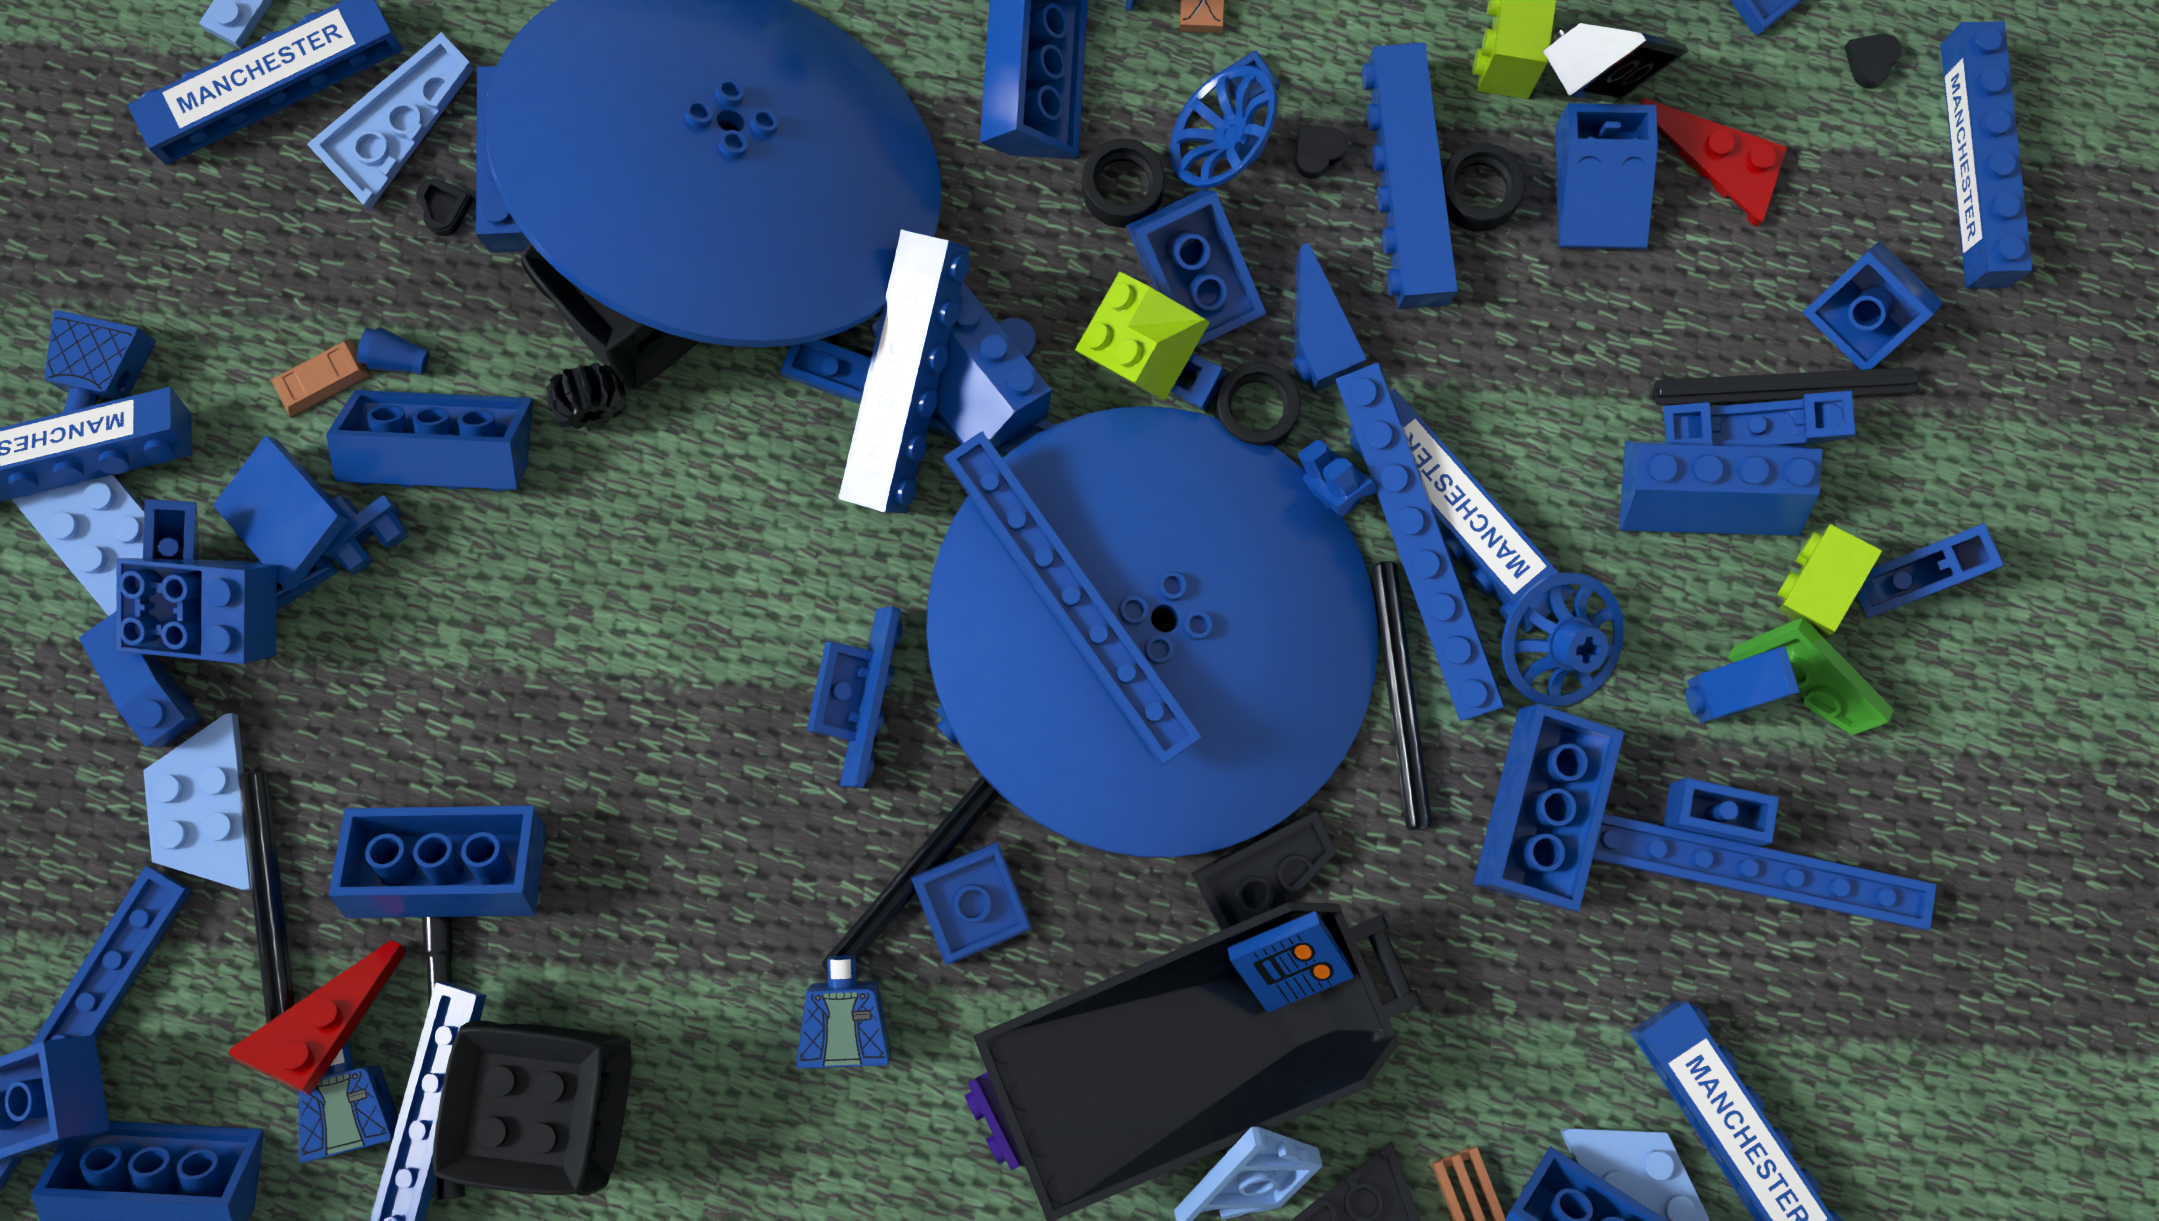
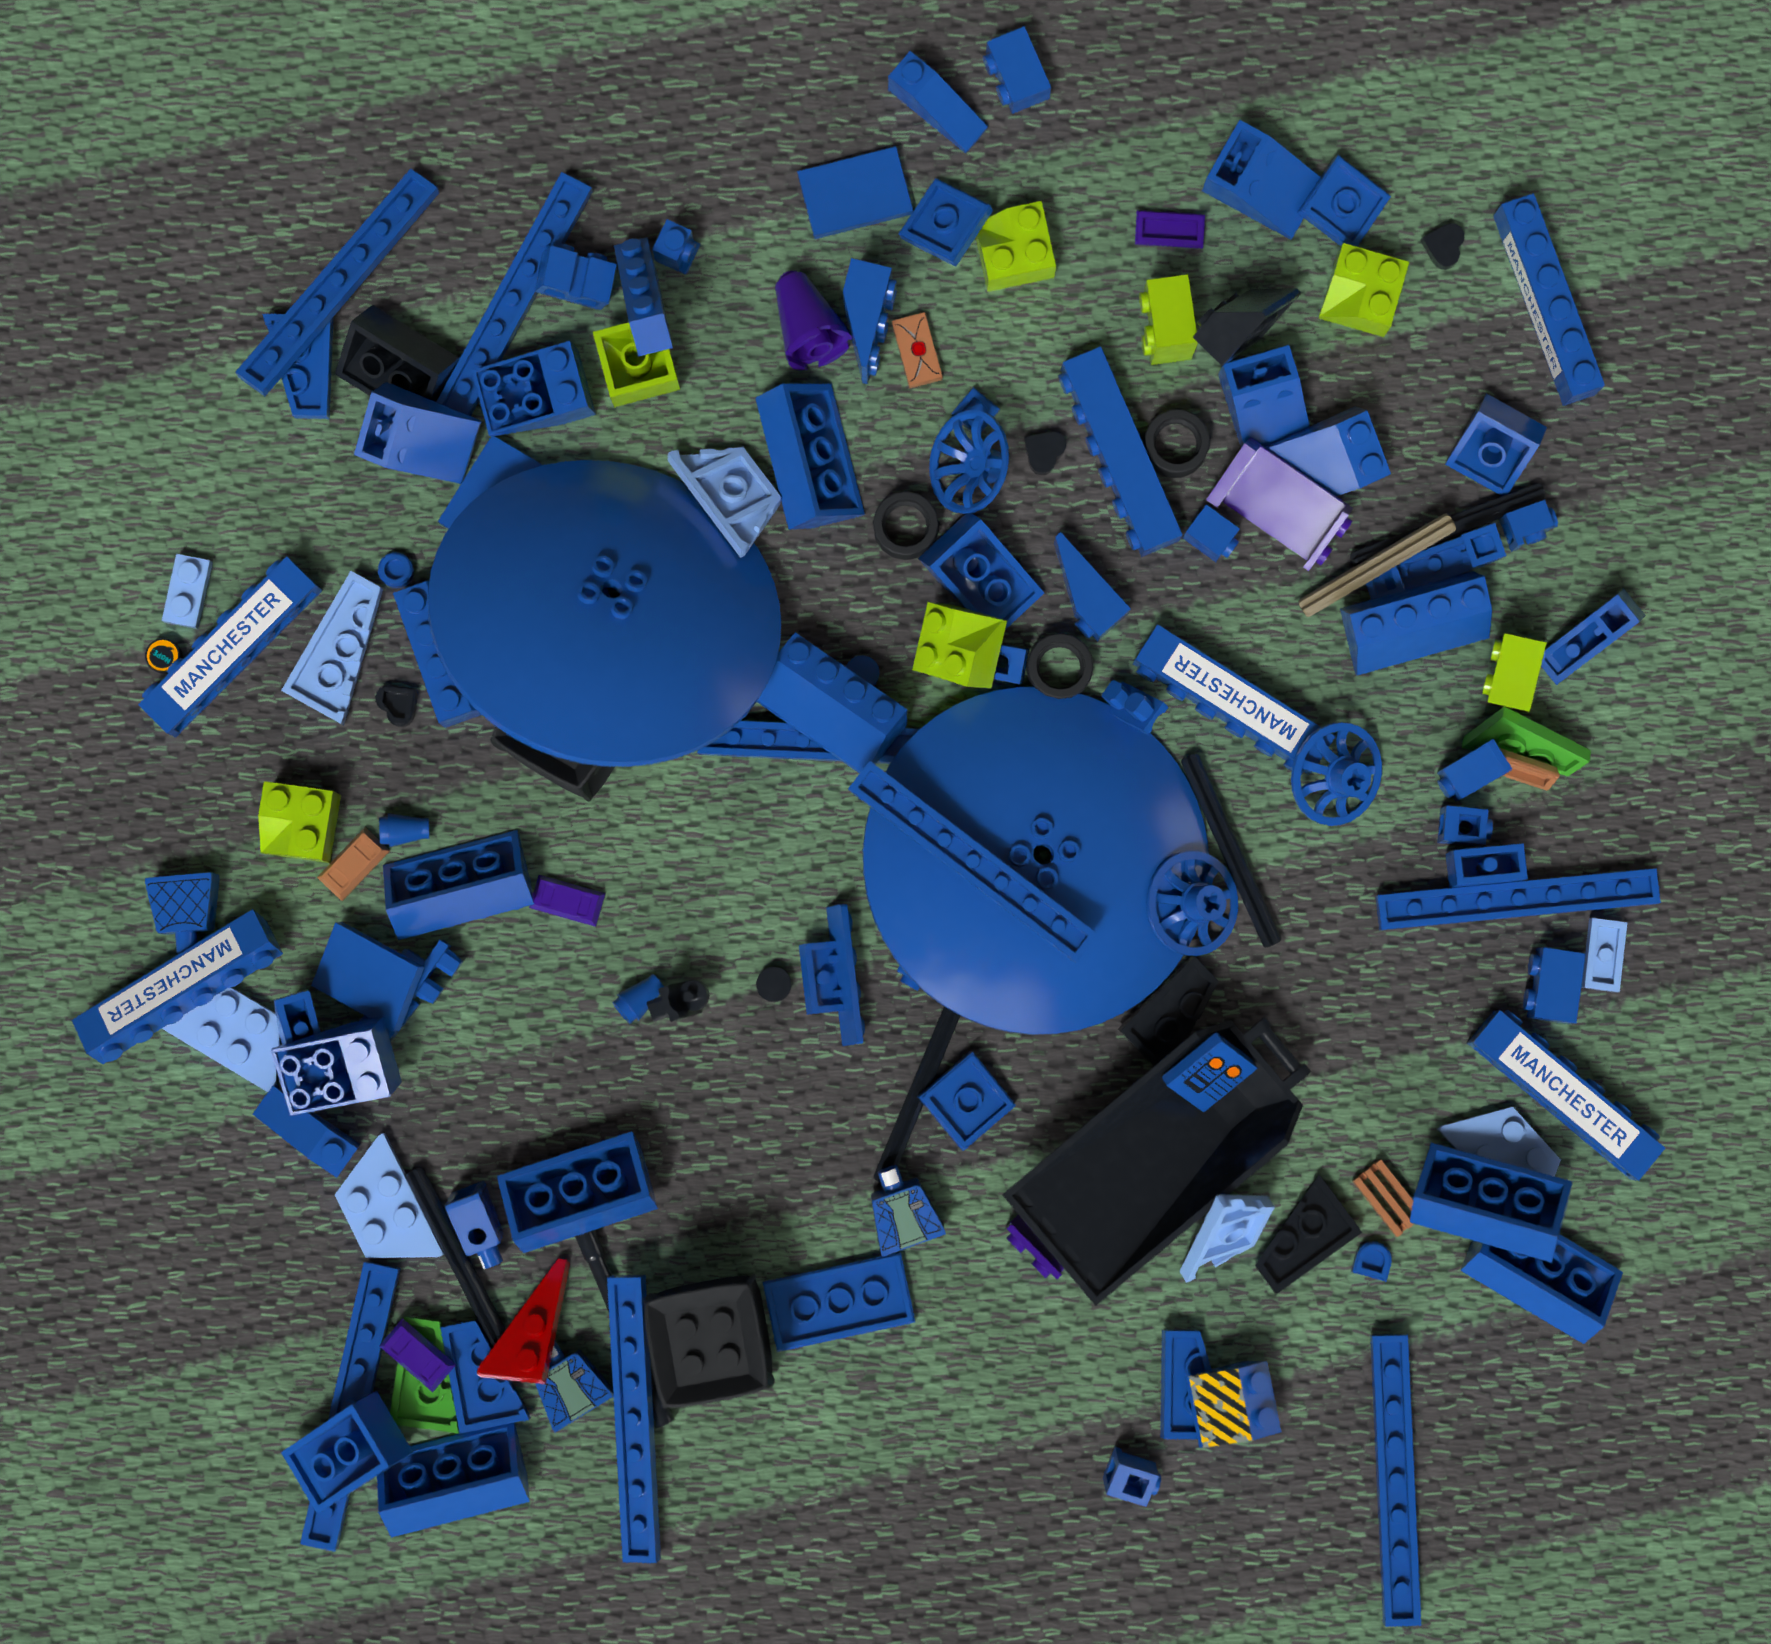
camera: 10 degrees left, 5 degrees up
(166, 1040) = (412, 1401): none -> bright green wing
(167, 1006) = (417, 1355): none -> dark purple tile
(182, 59) = (162, 654): none -> black tile
(221, 1089) = (478, 1400): none -> blue wing
(269, 302) = (298, 821): none -> lime slope
(300, 860) = (473, 1209): none -> blue torso
(491, 46) = (395, 570): none -> blue tile
(562, 501) = (567, 900): none -> dark purple tile
(586, 396) = (561, 818): black gear -> none
(605, 646) = (633, 1000): none -> blue cone
(650, 662) = (679, 1001): none -> black hips
(725, 1110) = (838, 1302): none -> blue tile
(779, 682) = (773, 984): none -> black tile
(904, 372) = (794, 729): brick -> none
(924, 78) = (729, 491): none -> light blue wing
(1342, 743) = (1198, 903): none -> blue wheel
(1420, 542) = (1210, 734): blue plate -> none
(1493, 305) = (1212, 534): none -> blue brick
(1549, 807) = (1361, 901): blue slope -> none
(1590, 291) = (1282, 502): none -> panel
(1661, 258) = (1337, 452): none -> blue slope
(1687, 401) = (1377, 565): none -> dark tan axle
(1722, 751) = (1479, 824): none -> blue brick
(1731, 159) = (1362, 361): red wing -> none
(1763, 76) = (1363, 290): none -> lime slope
(1765, 993) = (1555, 985): none -> blue brick
(1809, 716) = (1530, 771): none -> nougat tile
(1838, 974) = (1604, 955): none -> light blue plate
(1888, 411) = (1528, 524): none -> blue brick

